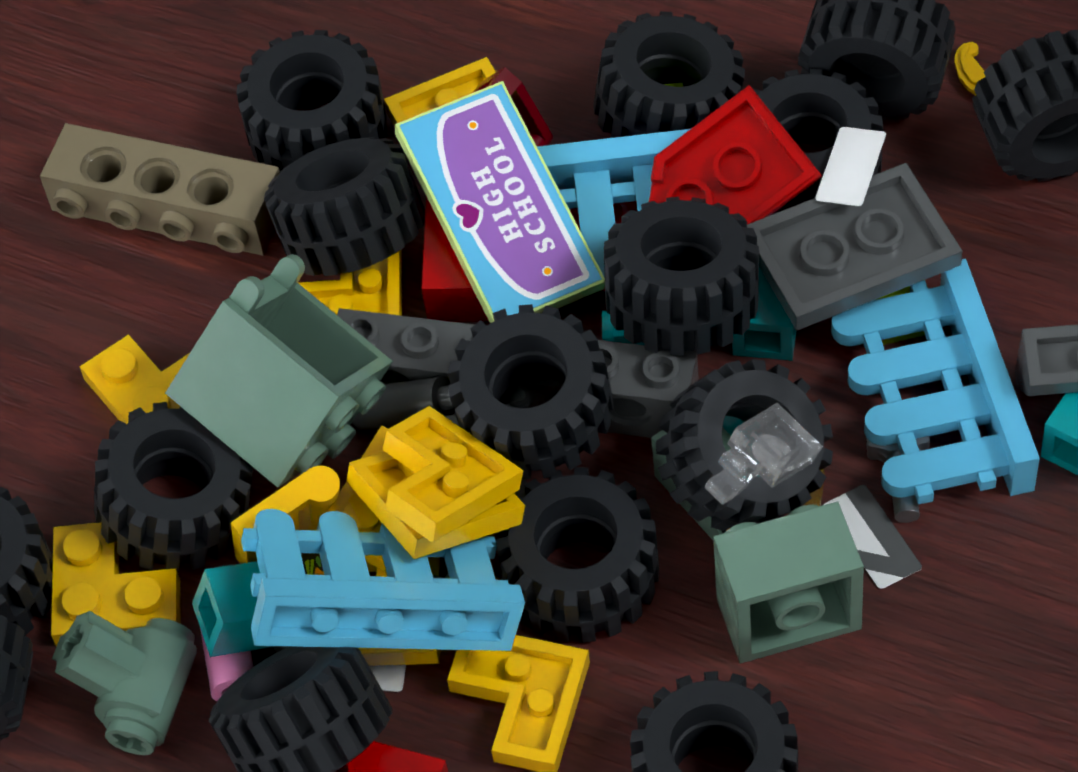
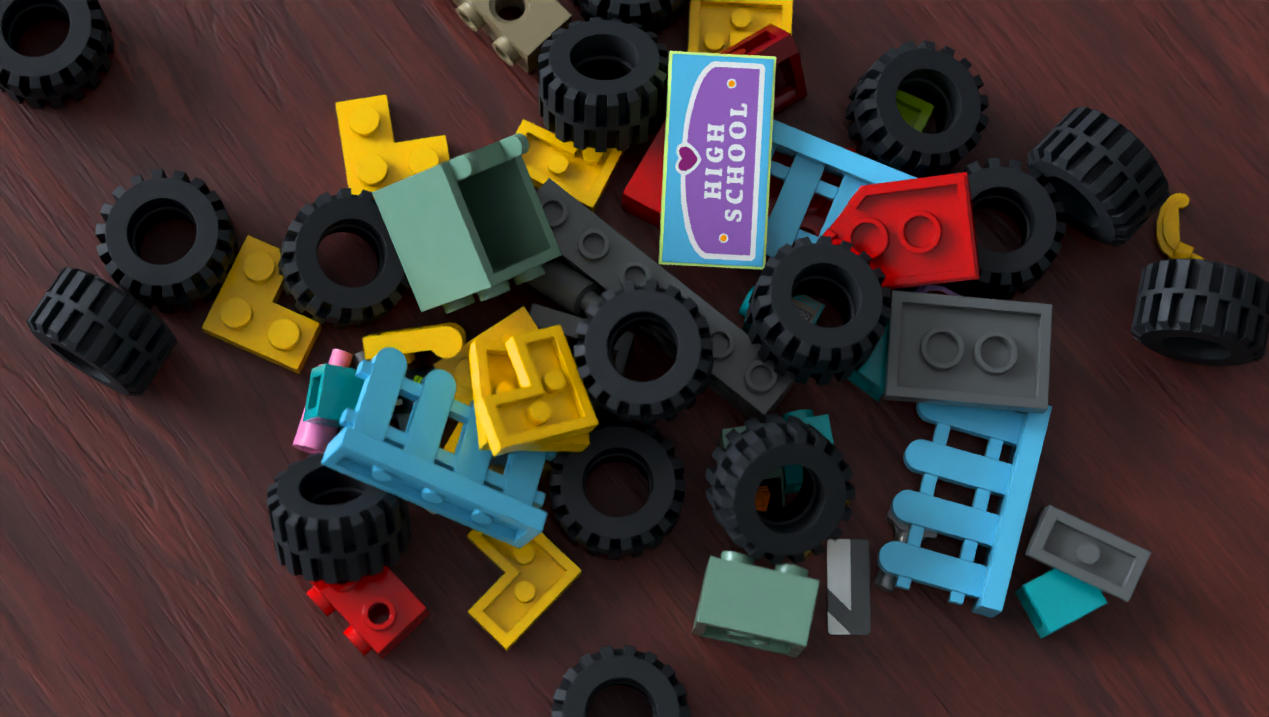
camera: 15 degrees right, 20 degrees up
(131, 672) = (238, 400): sand green piece -> none
(764, 446) = (787, 517): clear plate -> none
(850, 166) = (1007, 282): white sticker -> none

